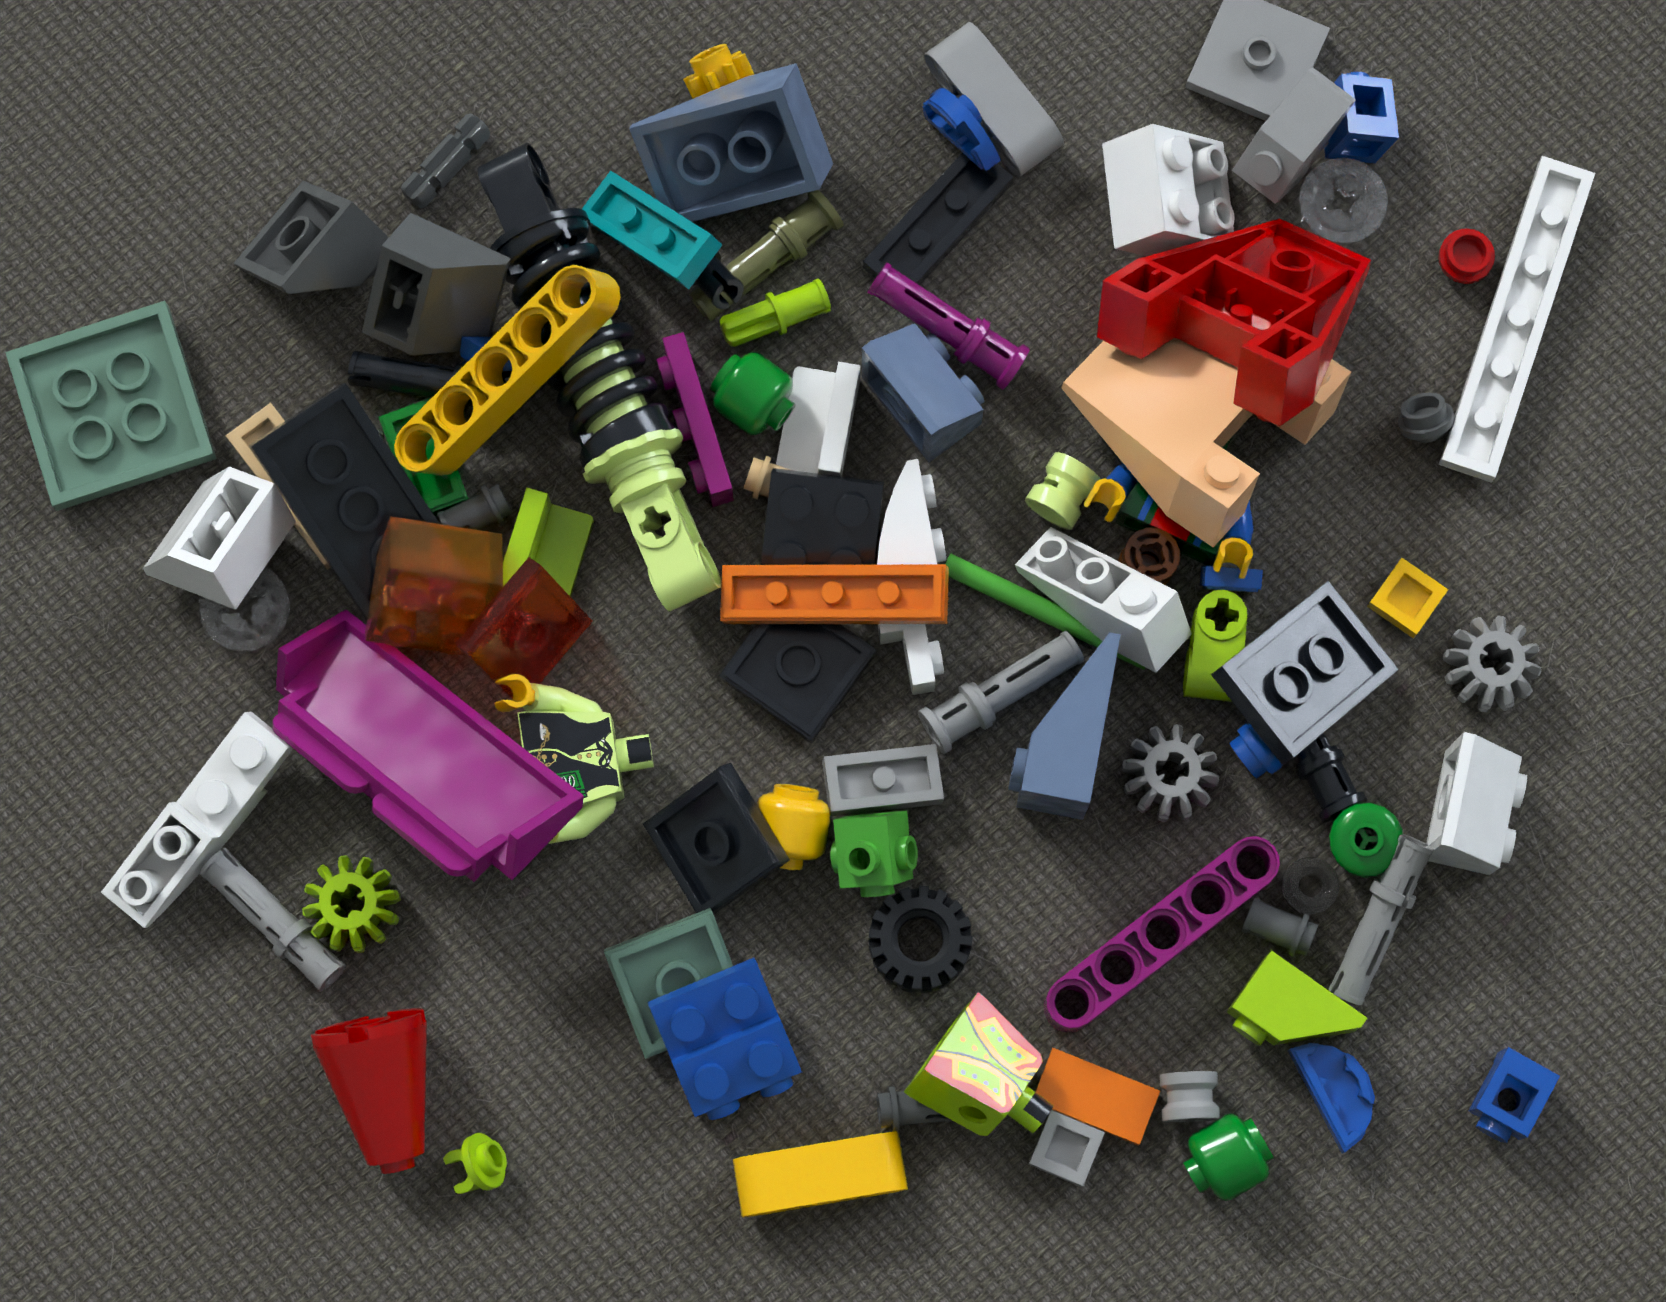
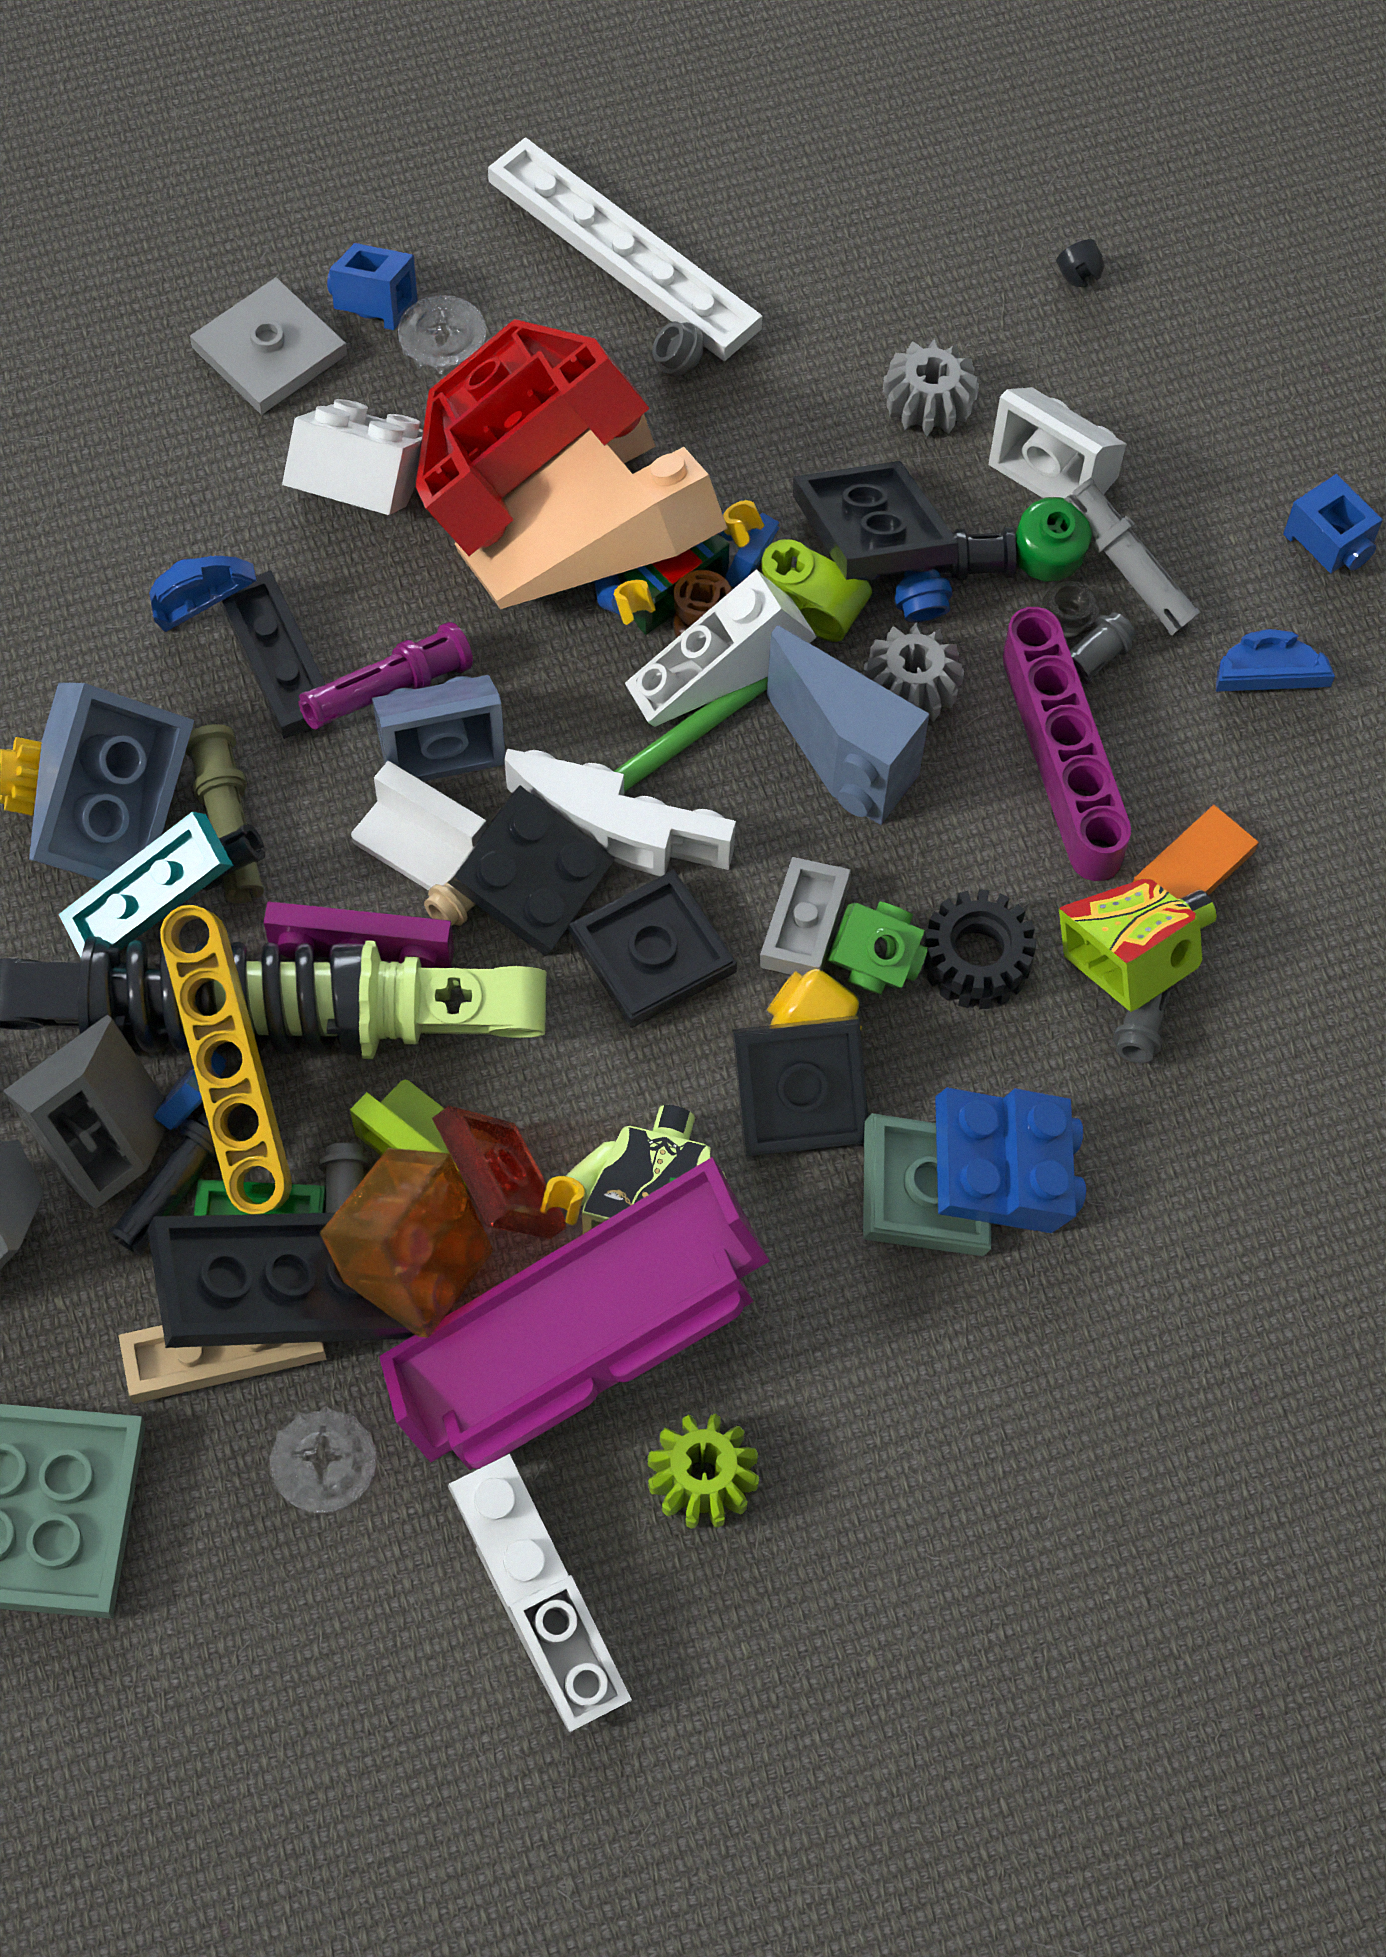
camera: 70 degrees left, 15 degrees down
(223, 537) = (239, 1437): white slope -> none
(263, 910) = (681, 1562): light grey pin -> none
(380, 1083) = (910, 1511): red cone -> none
(483, 1162) = (1035, 1447): lime plate -> none
(753, 393) = (361, 872): green head -> none
(775, 313) = (288, 826): lime axle -> none
(820, 1174) = (1177, 1131): yellow beam -> none
(834, 594) = (605, 872): orange tile -> none
(978, 704) = (769, 803): light grey pin -> none
(1009, 112) = (137, 557): light grey beam -> none
(1062, 491) = (602, 658): yellowish green wheel -> none
(1066, 1148) = (1241, 904): light grey plate -> none
(1189, 1096) = (1230, 780): light grey wheel -> none
(1228, 1157) = (1302, 768): green head -> none
(1289, 1006) = (1175, 666): lime slope -> none
(1293, 135) = (366, 327): light grey slope -> none
(1407, 598) = (837, 428): yellow plate -> none
(1466, 256) = (544, 262): red plate -> none

